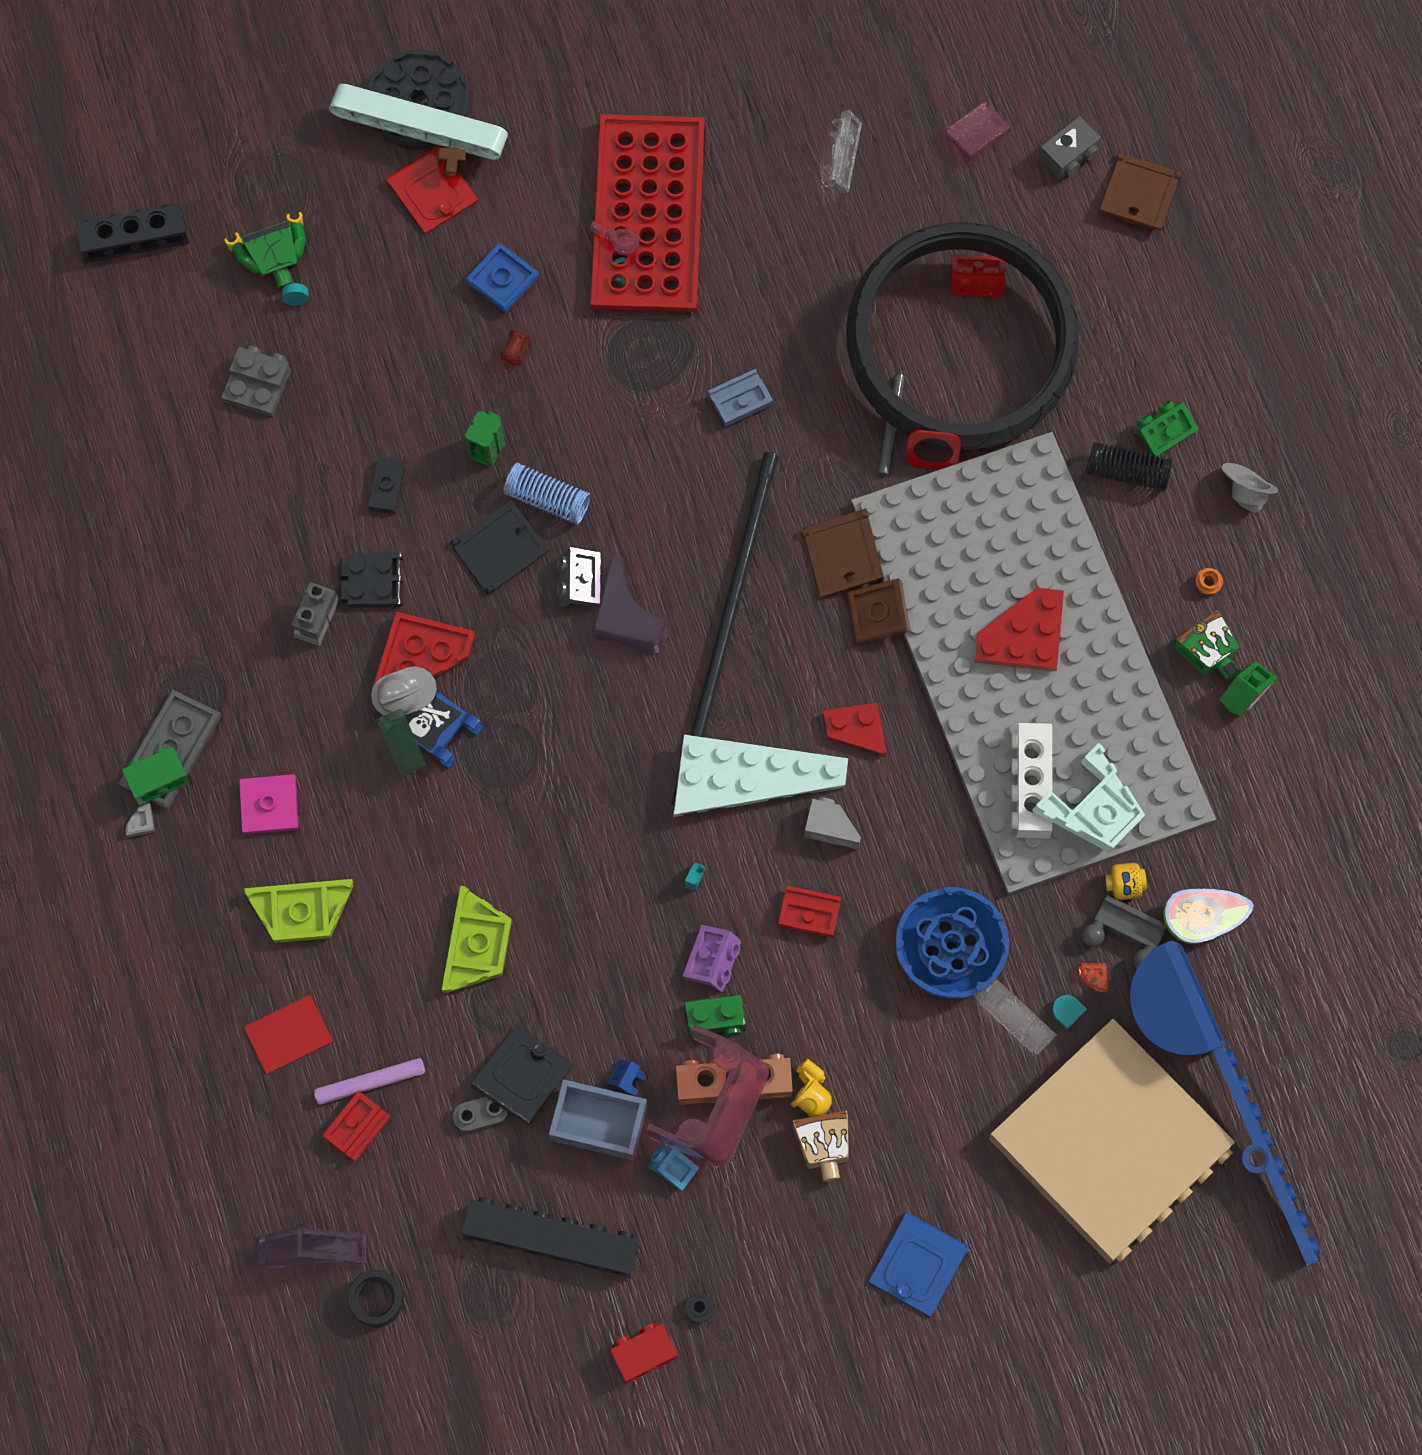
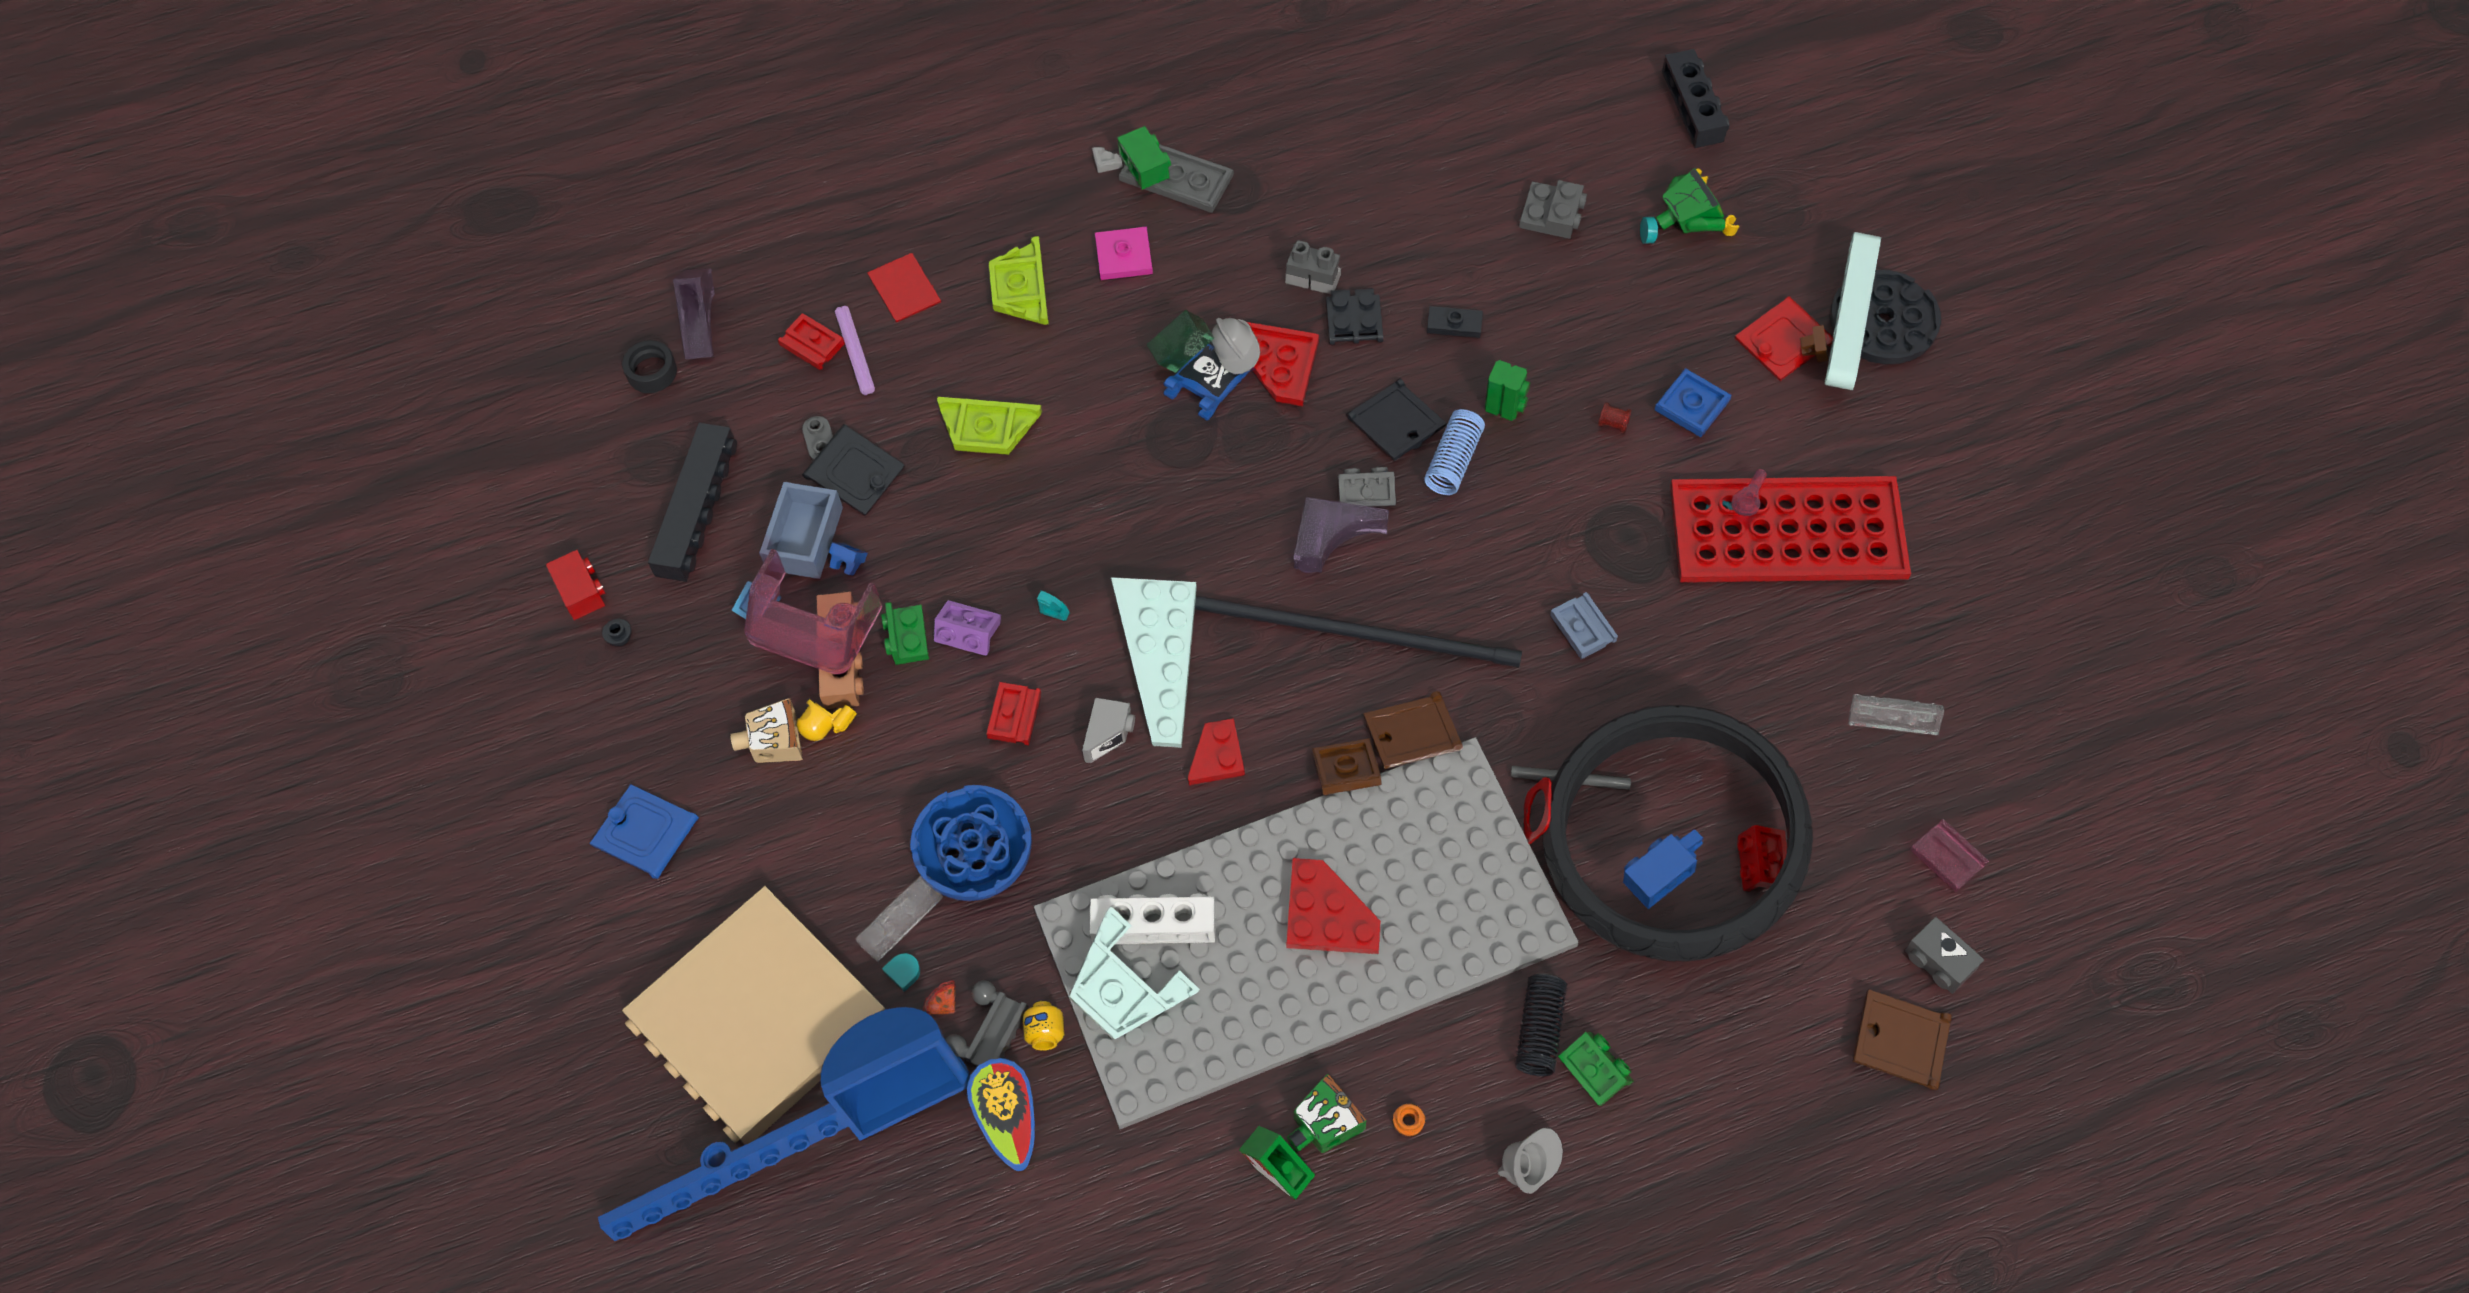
camera: 90 degrees right, 10 degrees down
(1011, 343) = (1662, 868): none -> blue hinge

